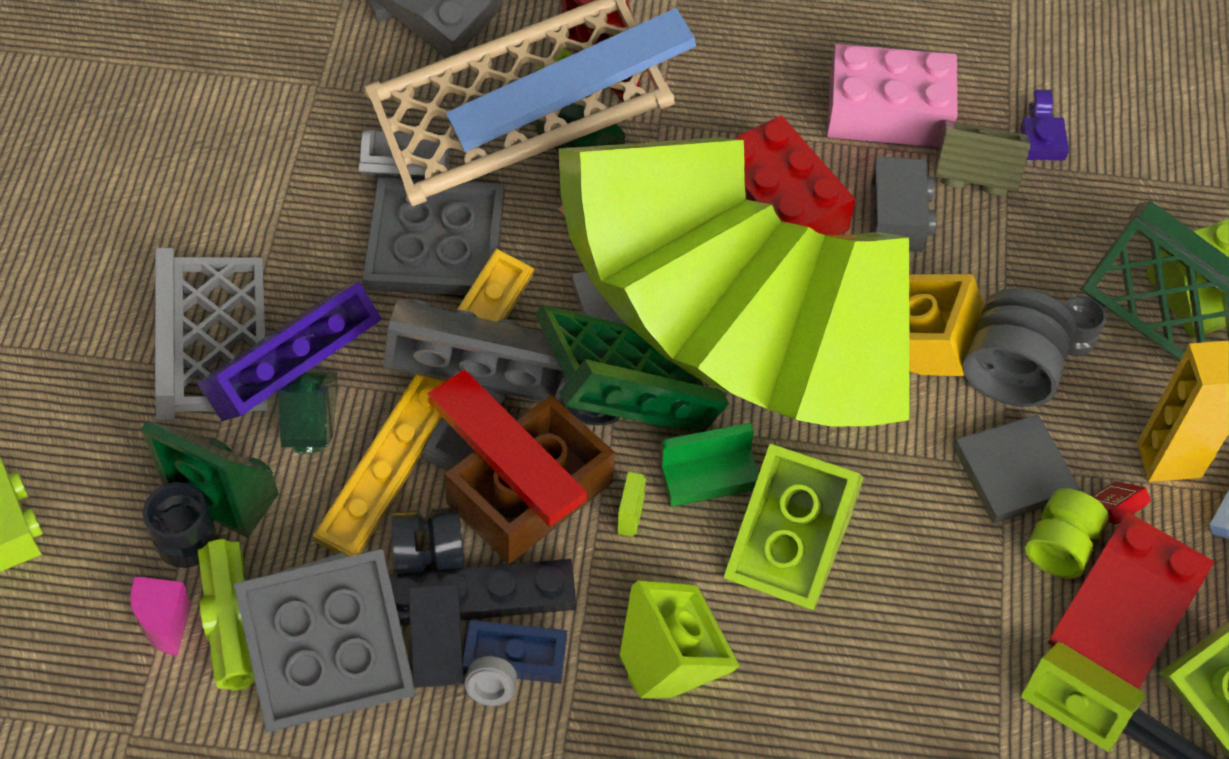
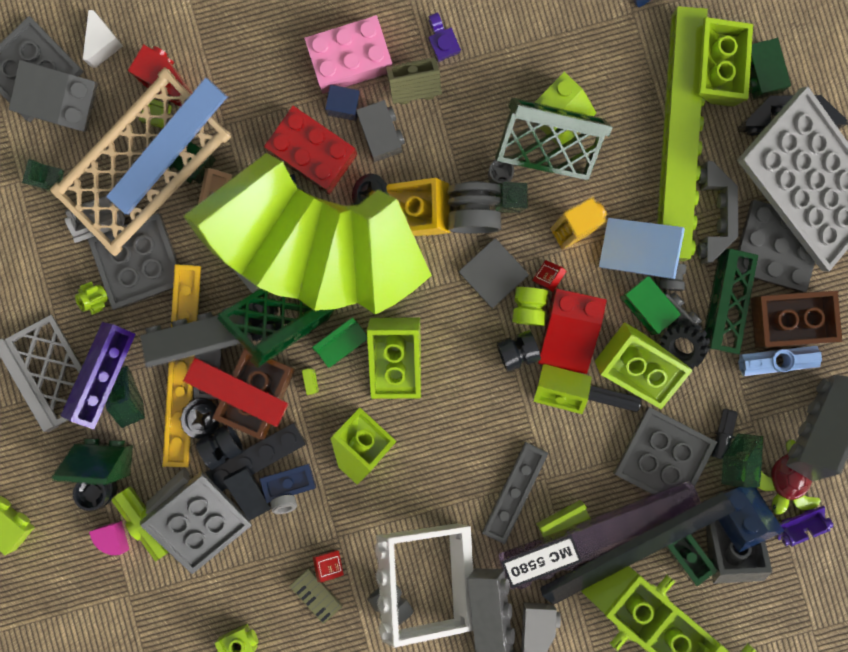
camera: 20 degrees left, 30 degrees up
(339, 253) = (91, 298): none -> lime gear
(349, 82) = (41, 176): none -> clear green panel
(429, 470) = (188, 416): none -> black gear
(854, 148) = (342, 102): none -> dark blue panel
(1025, 594) = (518, 351): none -> black wheel
(1090, 362) = (513, 197): none -> clear green brick

